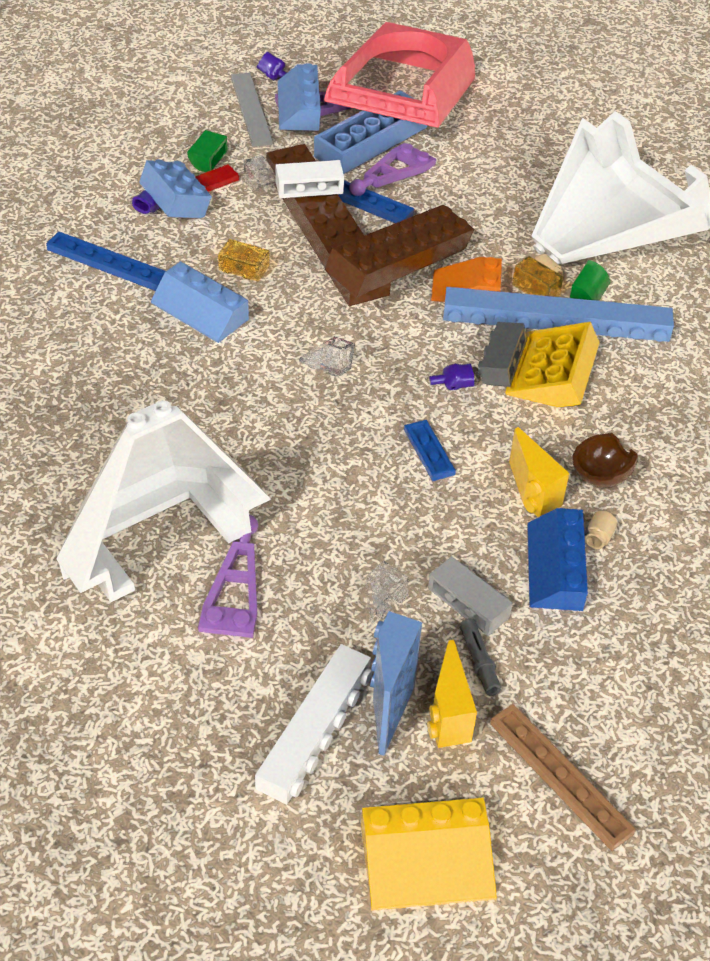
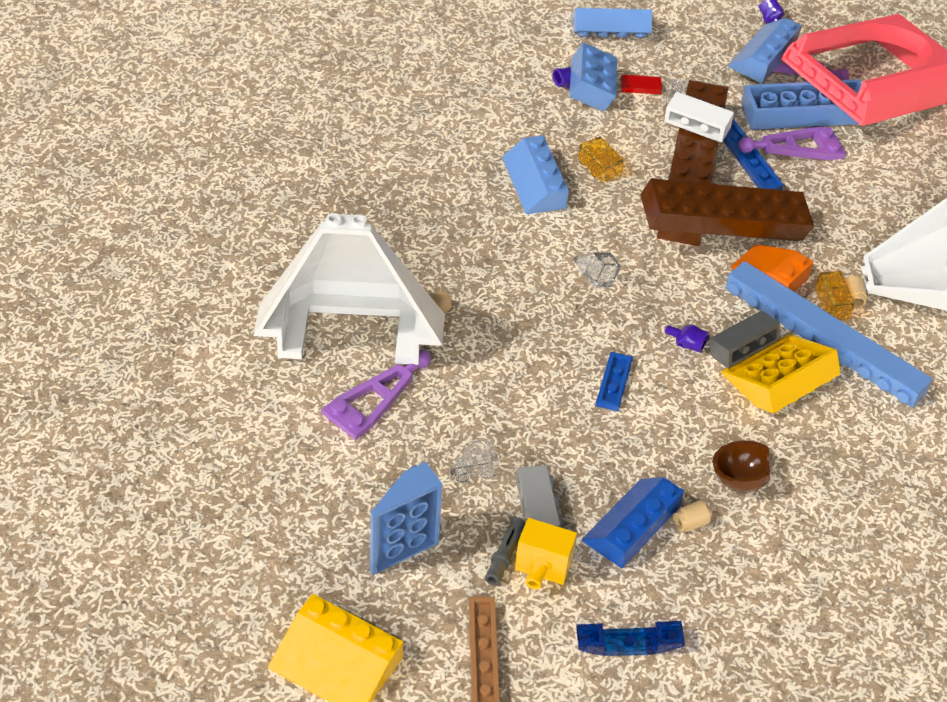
camera: 35 degrees right, 0 degrees up
(105, 260) = (493, 107): blue plate -> none
(143, 134) = (612, 21): none -> medium blue slope
(207, 151) = (652, 58): green brick -> none
(251, 109) = (723, 40): light grey tile -> none
(313, 724) = (323, 525): white brick -> none
(453, 706) = (444, 563): yellow slope -> none
(523, 635) = (545, 553): none -> yellow brick
(537, 475) = (673, 446): yellow slope -> none
(590, 282) = (881, 322): green brick -> none
(652, 667) = (630, 641): none -> clear blue slope

